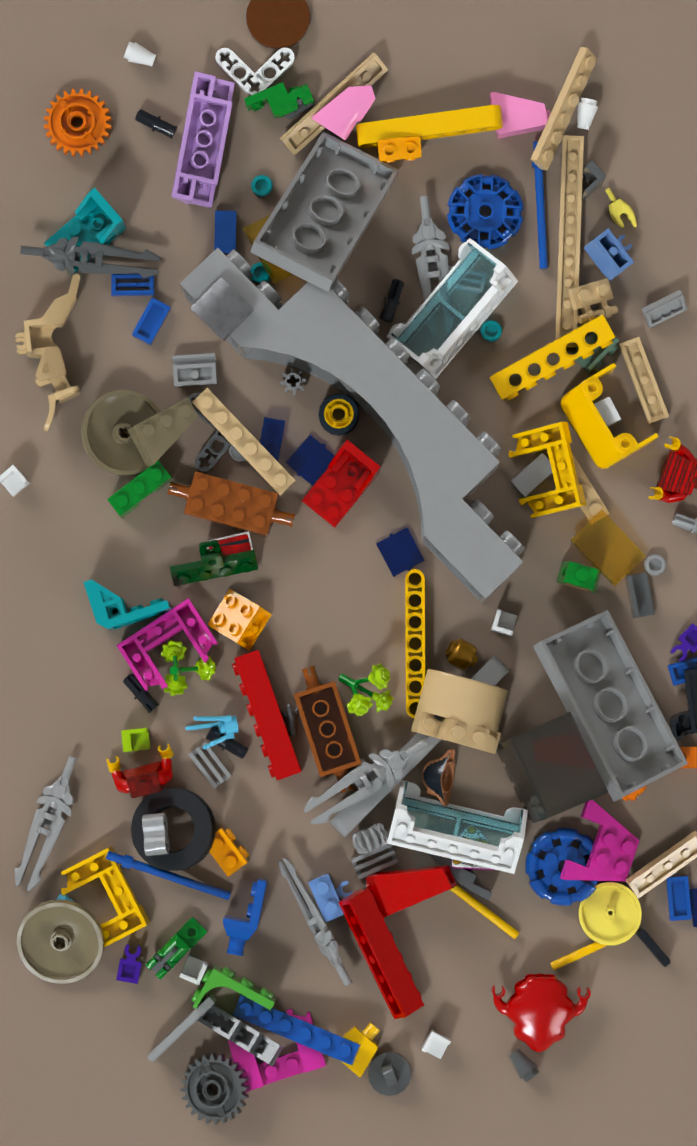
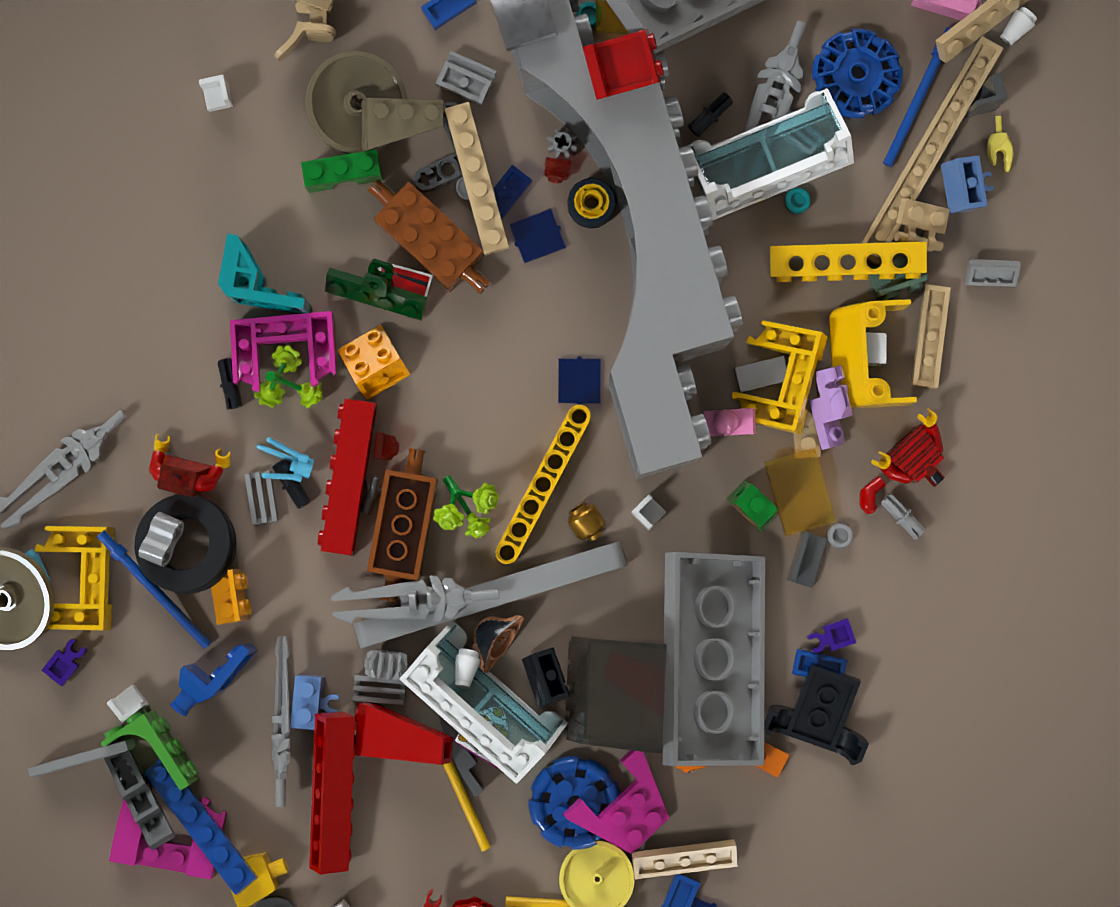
camera: 25 degrees right, 0 degrees up
(135, 739) = (197, 429): lime panel -> none
(176, 948) = (121, 670): green plate -> none
(200, 1093) = (100, 837): dark grey gear -> none
(282, 677) = (385, 446): none -> clear red plate
(299, 403) = (556, 169): none -> clear red plate
(314, 306) = (623, 64): none -> red panel
(342, 484) = (556, 277): red bracket -> none
(431, 809) = (465, 667): none -> white cone
(469, 709) = (560, 583): tan piece -> none
(493, 785) = (545, 677): none -> black brick
(529, 523) = (731, 422): none -> bright pink tile
(597, 473) = (830, 407): none -> lavender plate
(660, 524) = (868, 495): none -> red arm

